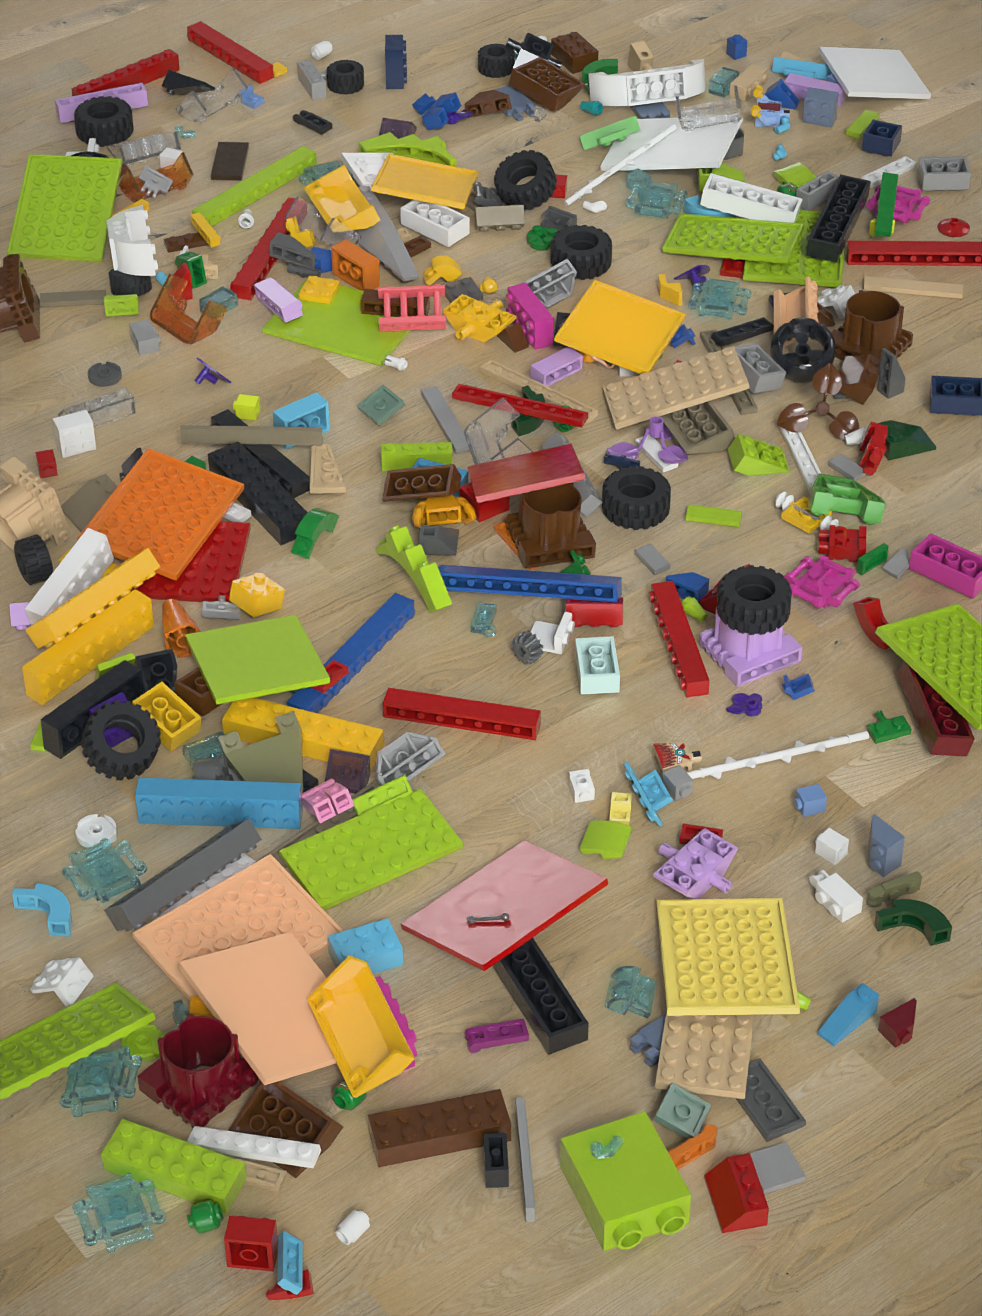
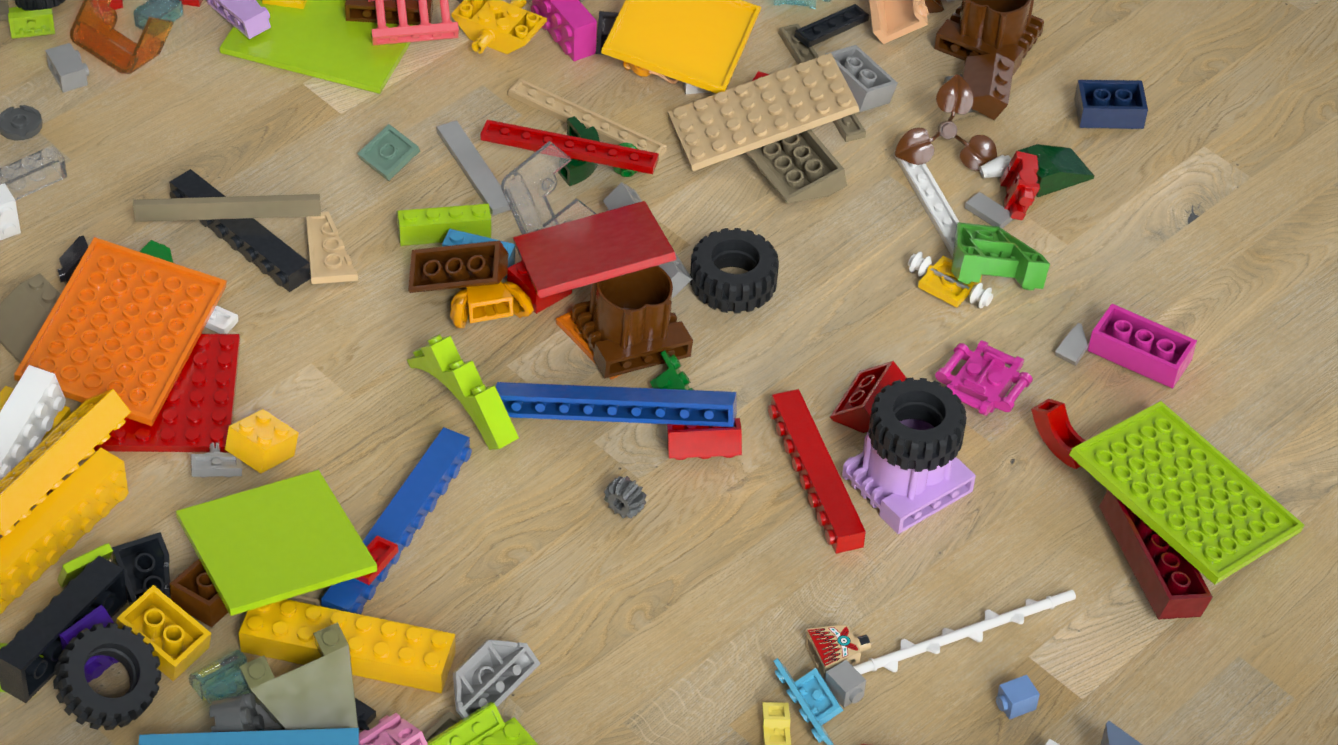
camera: 10 degrees left, 5 degrees up
(175, 626) = (161, 496): orange cone -> none
(206, 374) = (153, 116): dark purple shield -> none
(247, 407) = (214, 163): neon yellow brick -> none
(262, 492) = (250, 289): black brick -> none
(306, 412) = (292, 174): medium azure brick -> none
(310, 528) = (320, 340): green arch -> none
(348, 769) = (415, 697): slope -> none
(399, 363) = (400, 89): white pin -> none
(439, 540) = (489, 345): dark grey slope -> none
(462, 713) = (551, 599): red brick -> none
(484, 619) = (562, 457): clear light blue hinge -> none
(514, 338) = (546, 47): reddish brown slope -> none
(554, 636) = (654, 474): white bracket -> none
(557, 366) = (606, 86): lavender brick -> none
(581, 785) = (722, 696): white brick -> none
(597, 665) = (718, 517): light aqua brick -> none
(620, 461) = (706, 217): dark blue pin -> none
(651, 449) = (748, 202): white tile -> none
(652, 559) = (765, 355): light grey tile -> none
(656, 429) = (767, 205): medium lavender plant -> none
(682, 335) = (760, 34): blue bracket -> none
(690, 585) = (819, 393): blue slope -> none
(694, 609) = (829, 426): lime cone -> none
(713, 515) = (833, 288): lime tile -> none
(746, 704) = (914, 560): dark purple plate -> none
(756, 457) = (875, 203): lime slope -> none
(797, 363) = (904, 67): black wheel -> none
(798, 687) = (977, 530): blue bracket -> none
(843, 543) = (1002, 320): red hips -> none
(872, 559) = (1042, 341): green tile -> none
(888, 729) = (1097, 583): green plate -> none
(891, 377) = (1027, 81): dark grey slope -> none

